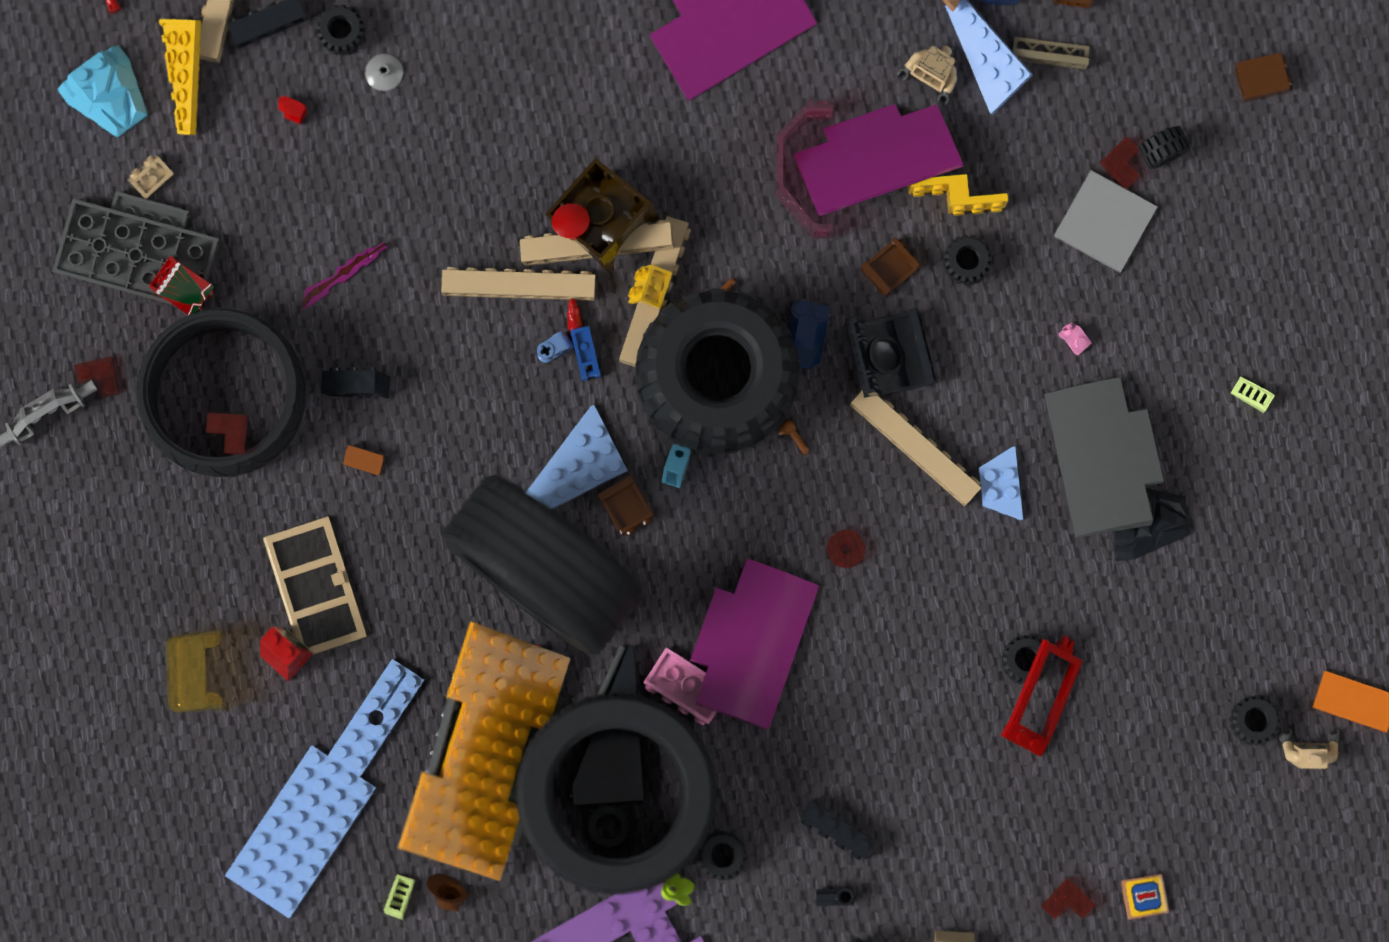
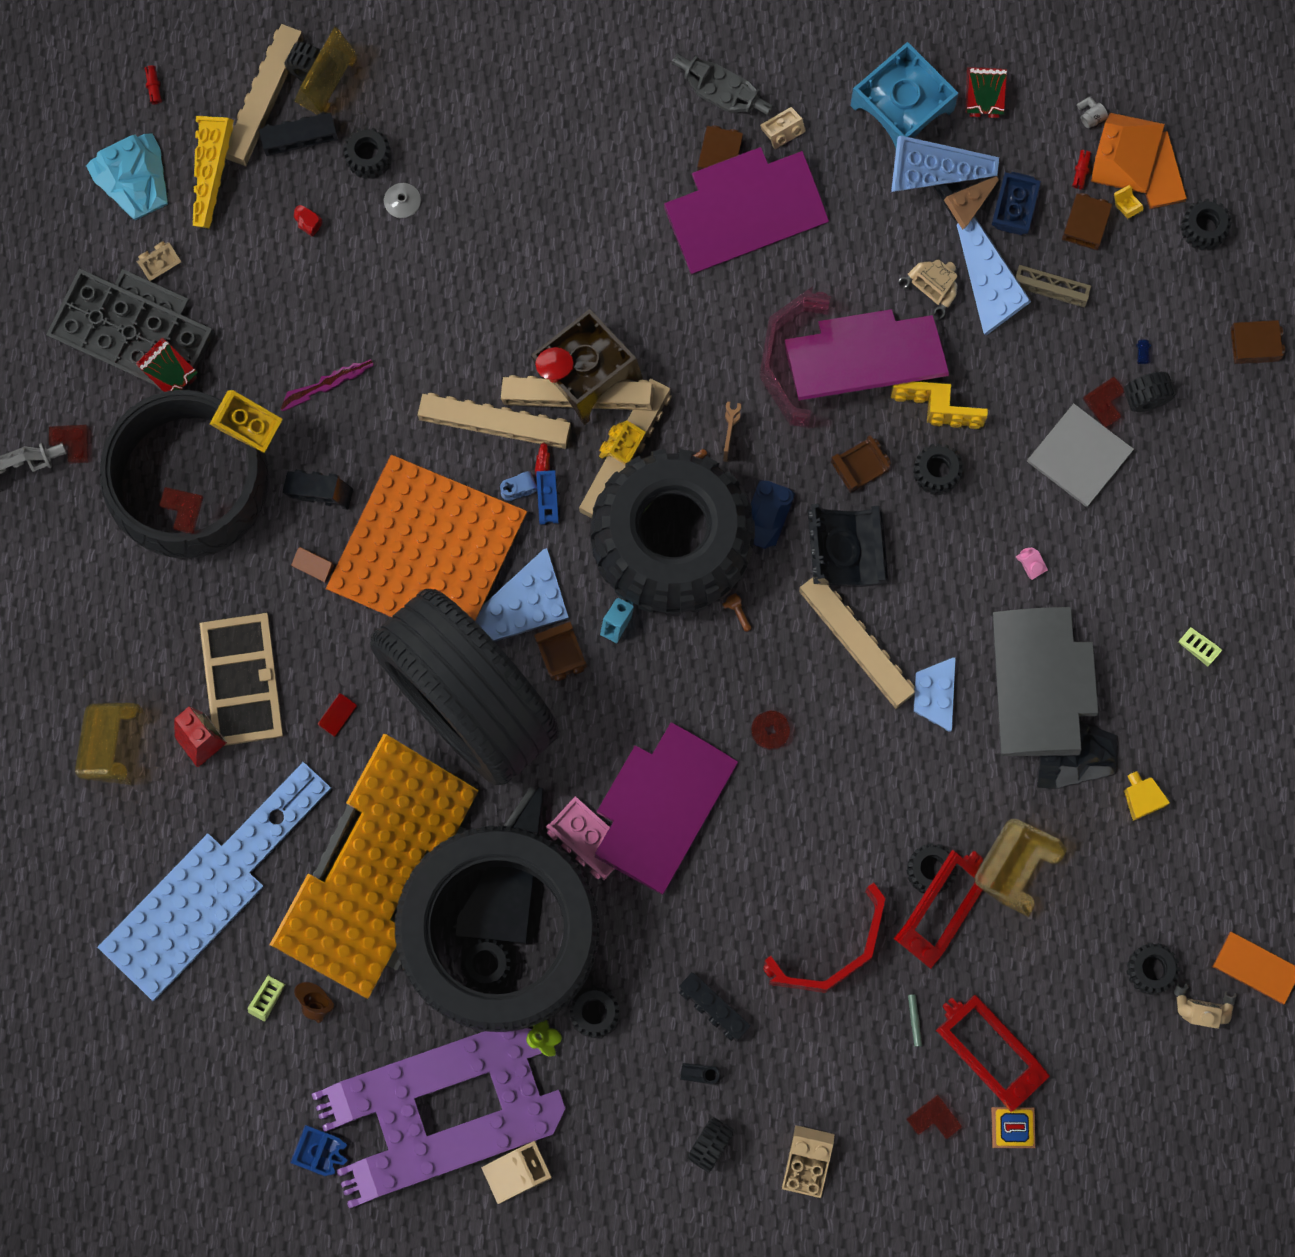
camera: 10 degrees right, 5 degrees down
(275, 332) = (245, 421): none -> yellow slope
(417, 606) = (337, 714): none -> red slope
(472, 419) = (425, 536): none -> orange baseplate
(754, 242) = (729, 416): none -> medium nougat flag
(888, 784) = (780, 979): none -> red panel
(1033, 809) = (915, 1023): none -> sand green piece
(1104, 639) = (1013, 862): none -> clear yellow windscreen
(1147, 855) = (1022, 1086): none -> red animal
(1151, 105) = (1143, 351): none -> clear blue pin
(1220, 552) = (1144, 796): none -> yellow torso

